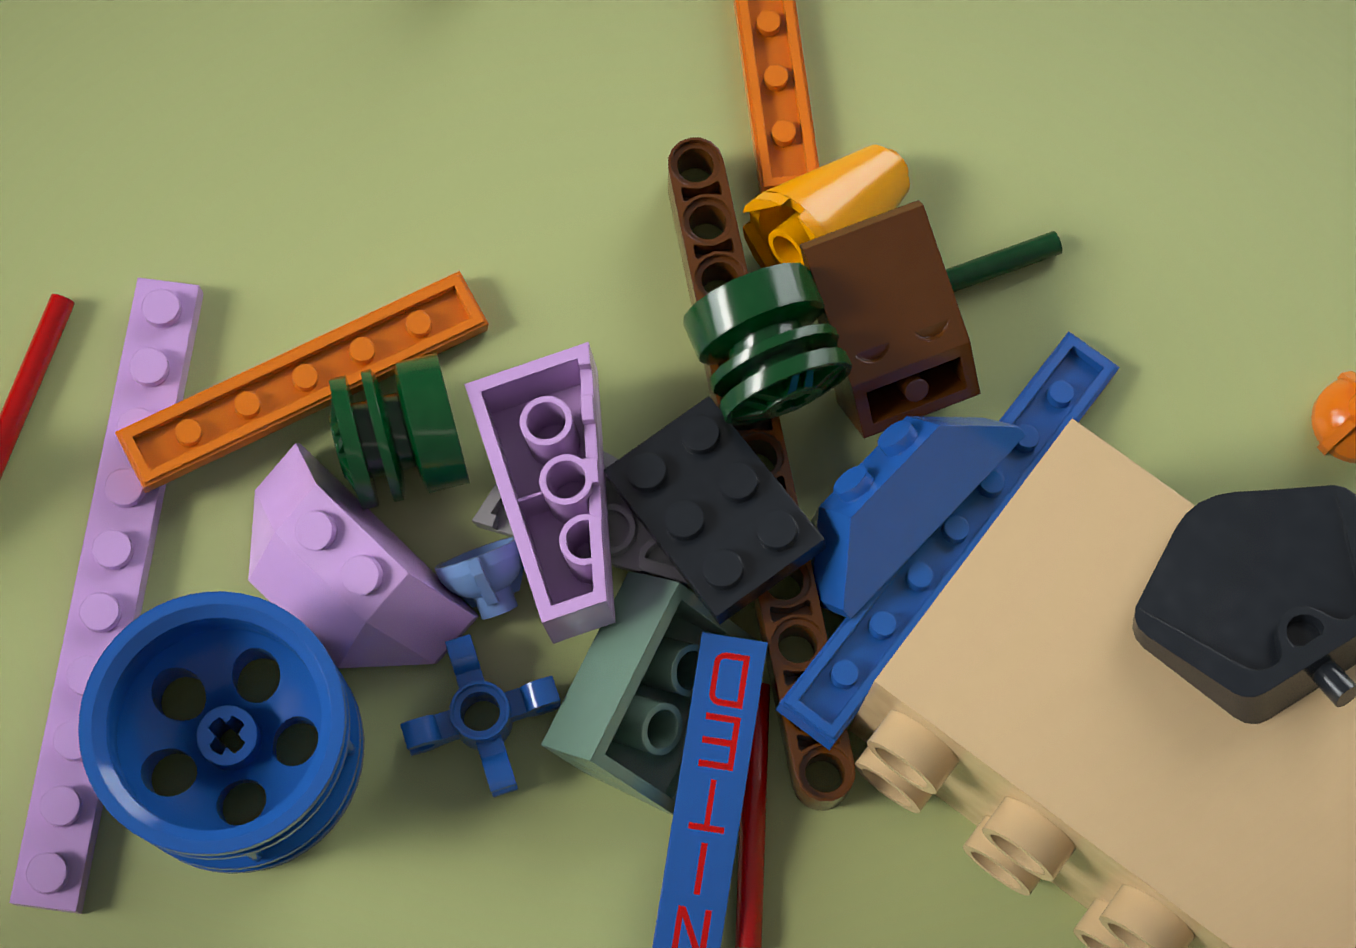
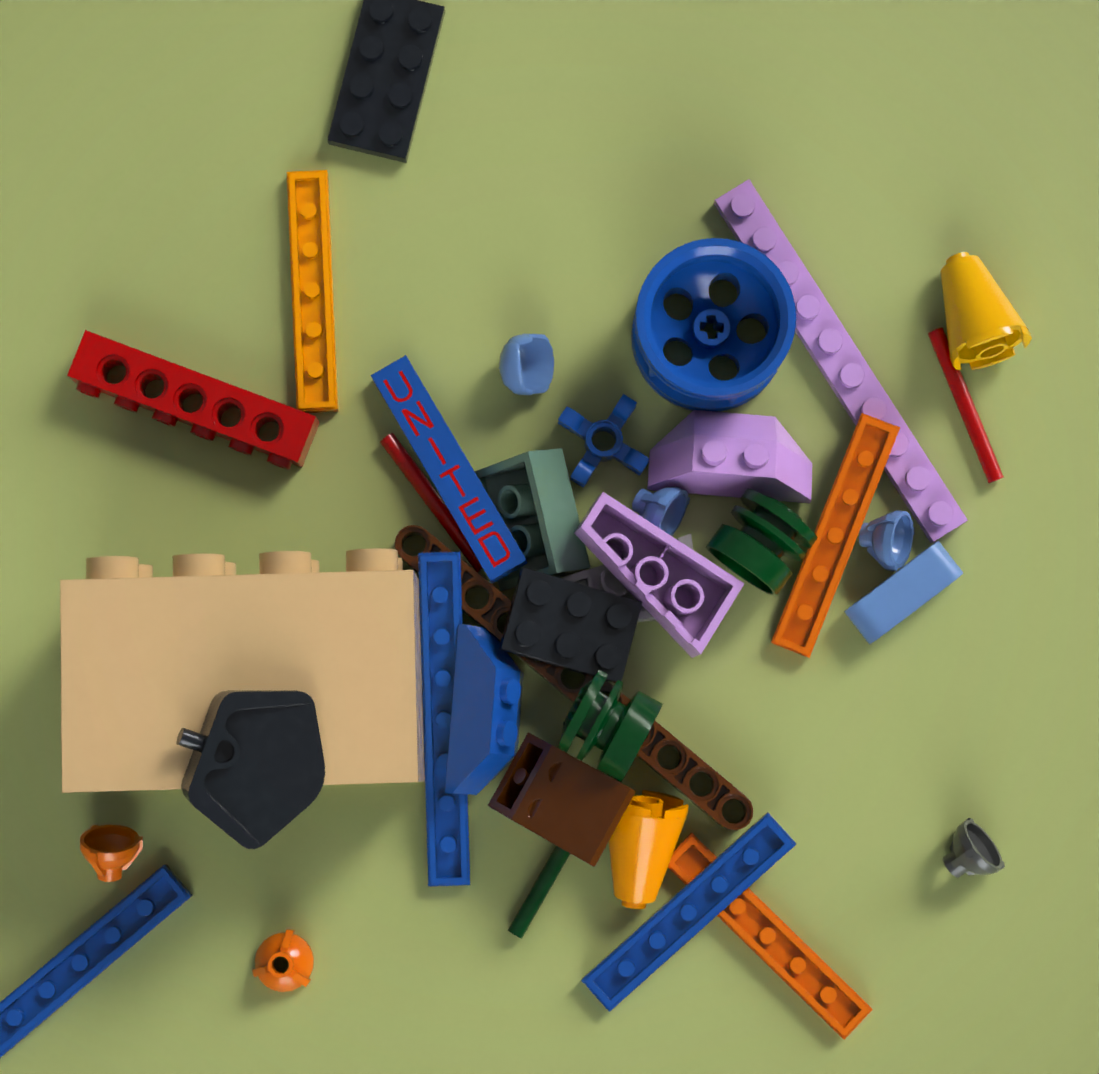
camera: 140 degrees right, 10 degrees up
(249, 326) = (889, 539): none -> medium blue piece
(285, 256) = (903, 592): none -> medium blue beam
(495, 890) = (527, 364): none -> medium blue hair
(835, 108) = (688, 911): none -> blue tile

